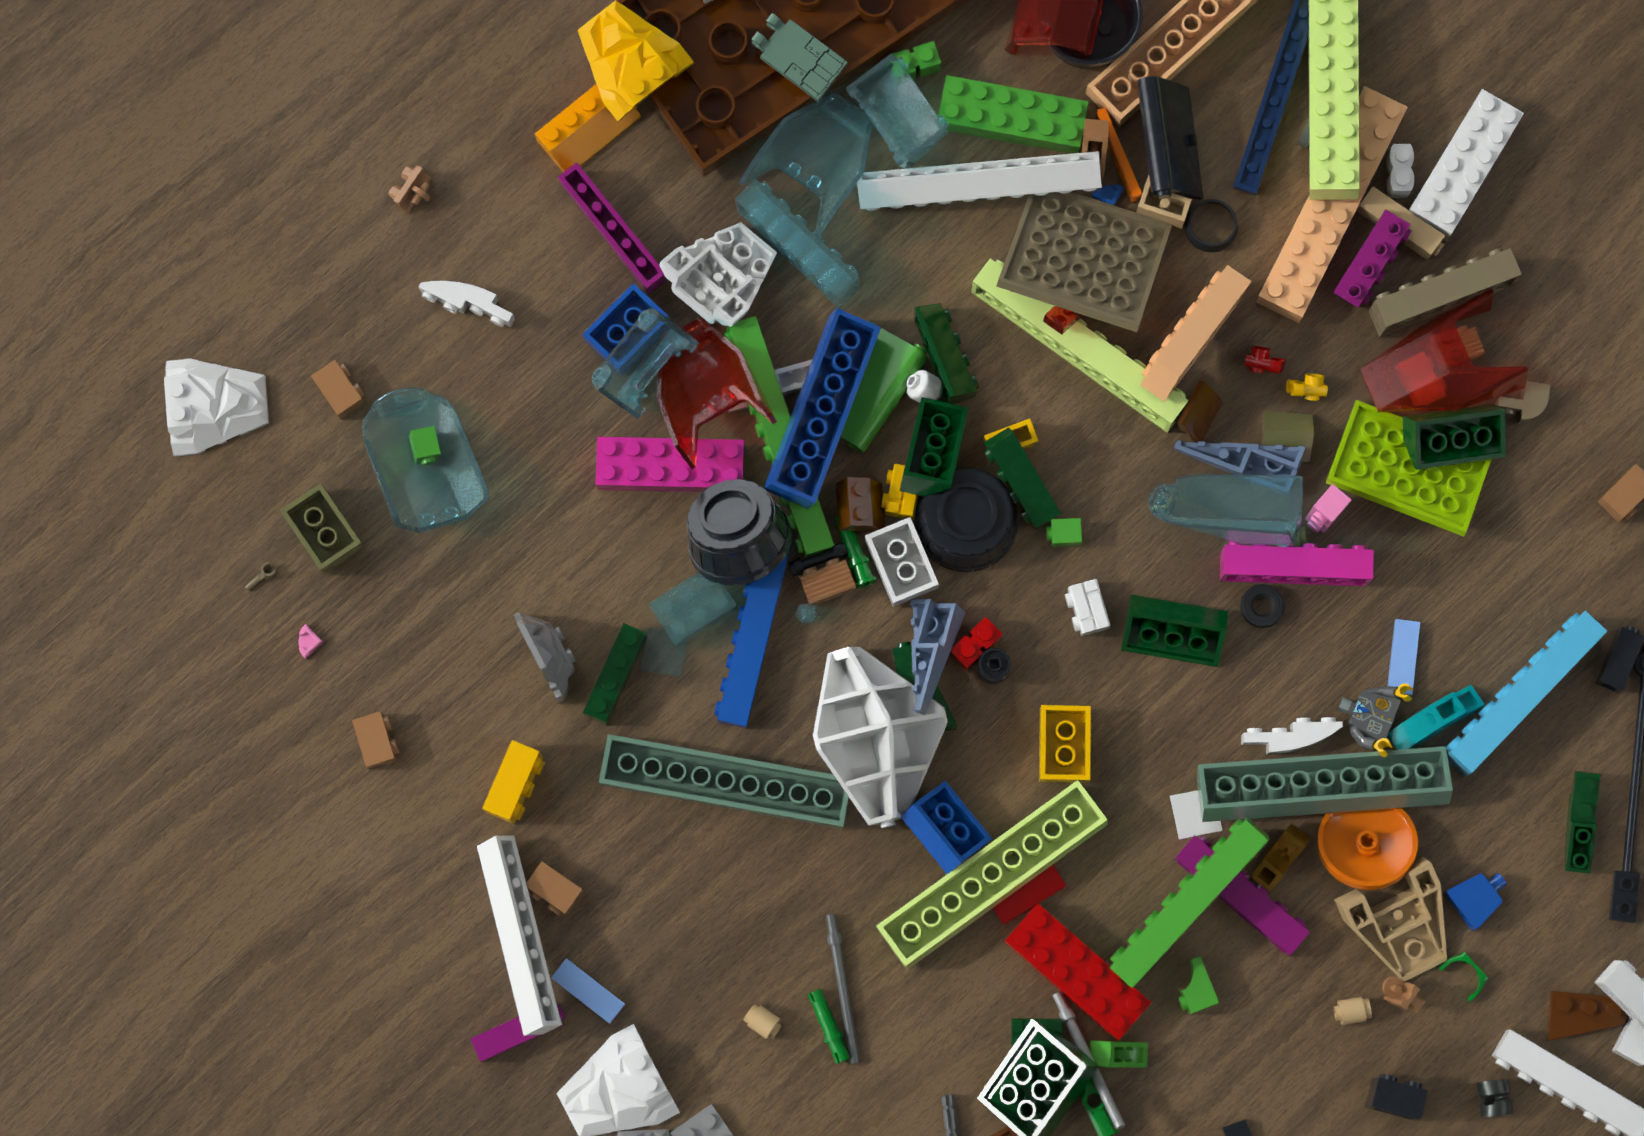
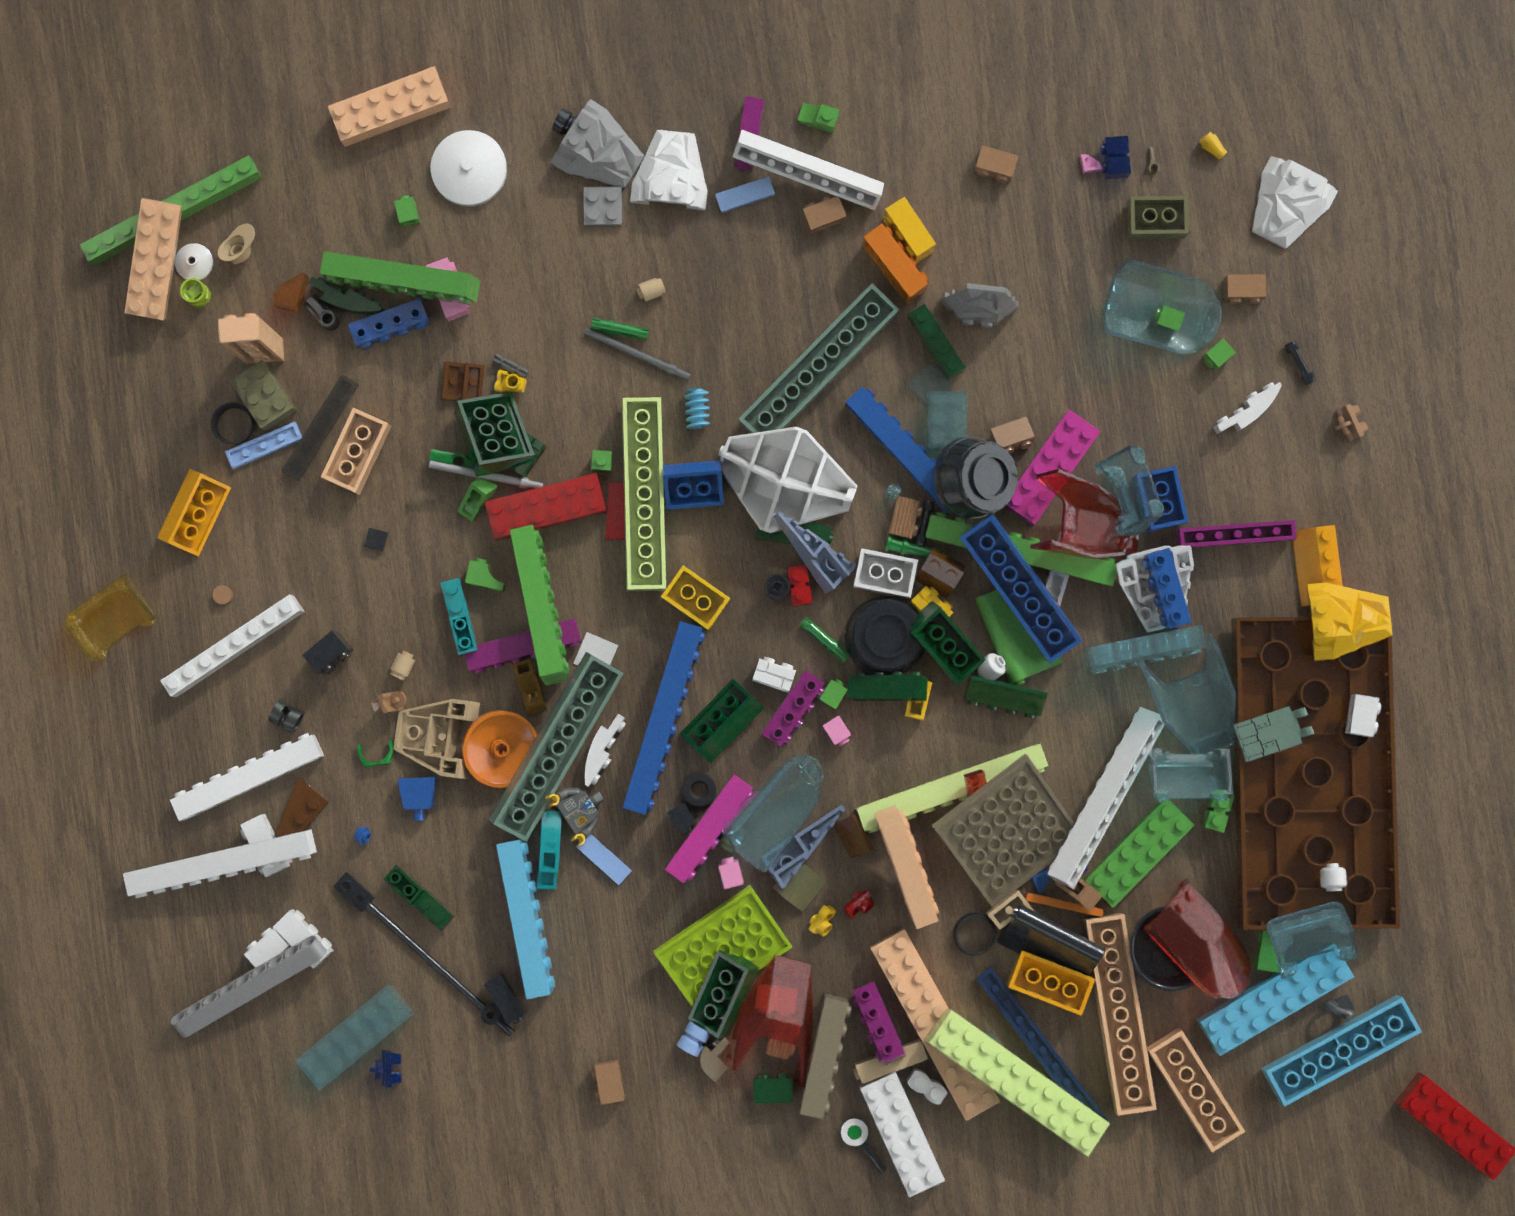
camera: 120 degrees right, 5 degrees up
(201, 525) = (1213, 145): none -> yellow cone
(274, 625) = (1116, 160): none -> clear blue piece
(370, 298) = (1308, 377): none -> black bar
(429, 370) = (1218, 354): none -> bright green brick
(448, 967) = (819, 117): none -> bright green arch
(559, 773) = (895, 264): none -> orange brick
(663, 526) = (1013, 435): none -> medium nougat brick
(720, 258) = (1167, 588): none -> blue brick
(859, 881) = (697, 406): none -> medium azure piece
(971, 1111) = (506, 382): none -> yellow plate
(986, 945) = (602, 461): none -> bright green brick
(1013, 584) = (824, 639): none -> green pin
(1101, 503) = (837, 731): none -> bright pink brick
(1109, 563) = (793, 708): none -> magenta brick
(1209, 114) = (1050, 982): none -> light orange slope
(1215, 691) = (663, 718): none -> blue brick
(1259, 983) = (459, 616): none -> teal slope
(1305, 601) = (682, 818): none -> black brick
(1499, 212) = (855, 1133): none -> piece
(1513, 323) = (773, 1089): none -> dark green brick
(1523, 436) = (693, 1039): none -> light blue wheel
(1560, 928) = (362, 835): none -> blue plate

